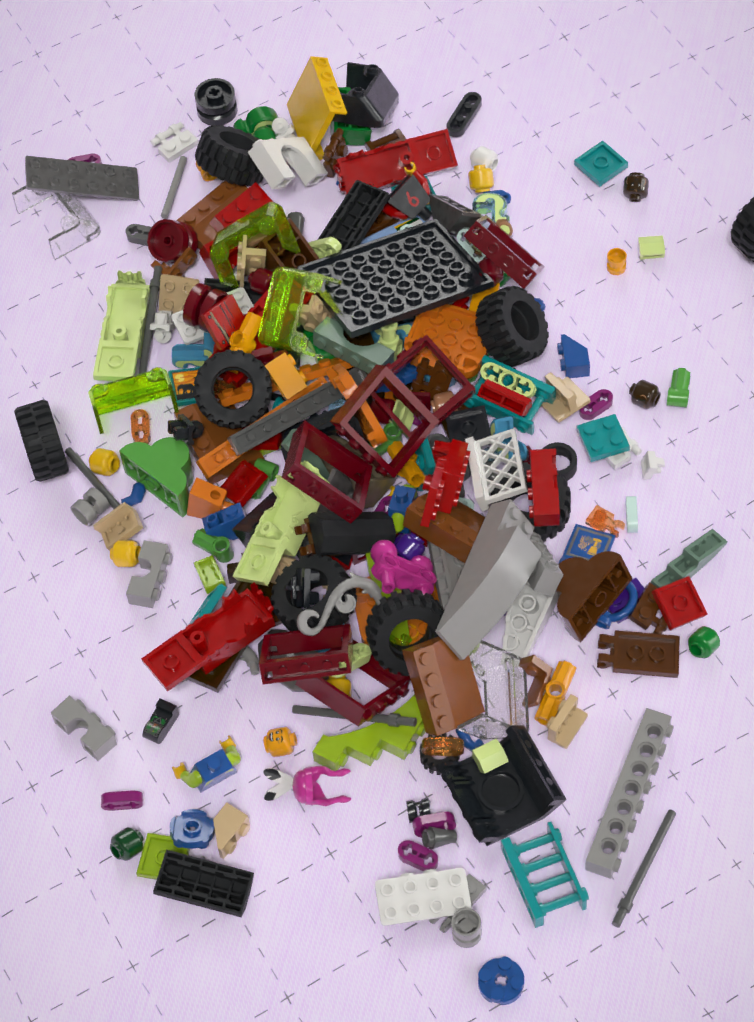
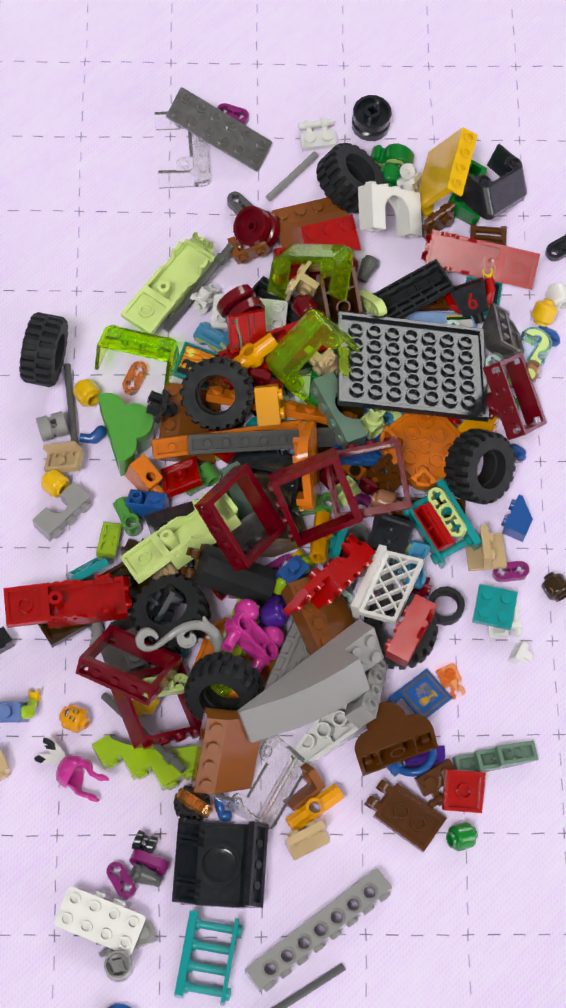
camera: 20 degrees right, 10 degrees up
(174, 292) = (232, 275): tan bracket -> none
(489, 756) = (226, 833): yellowish green piece -> none
(631, 514) = (476, 688): light aqua beam -> none

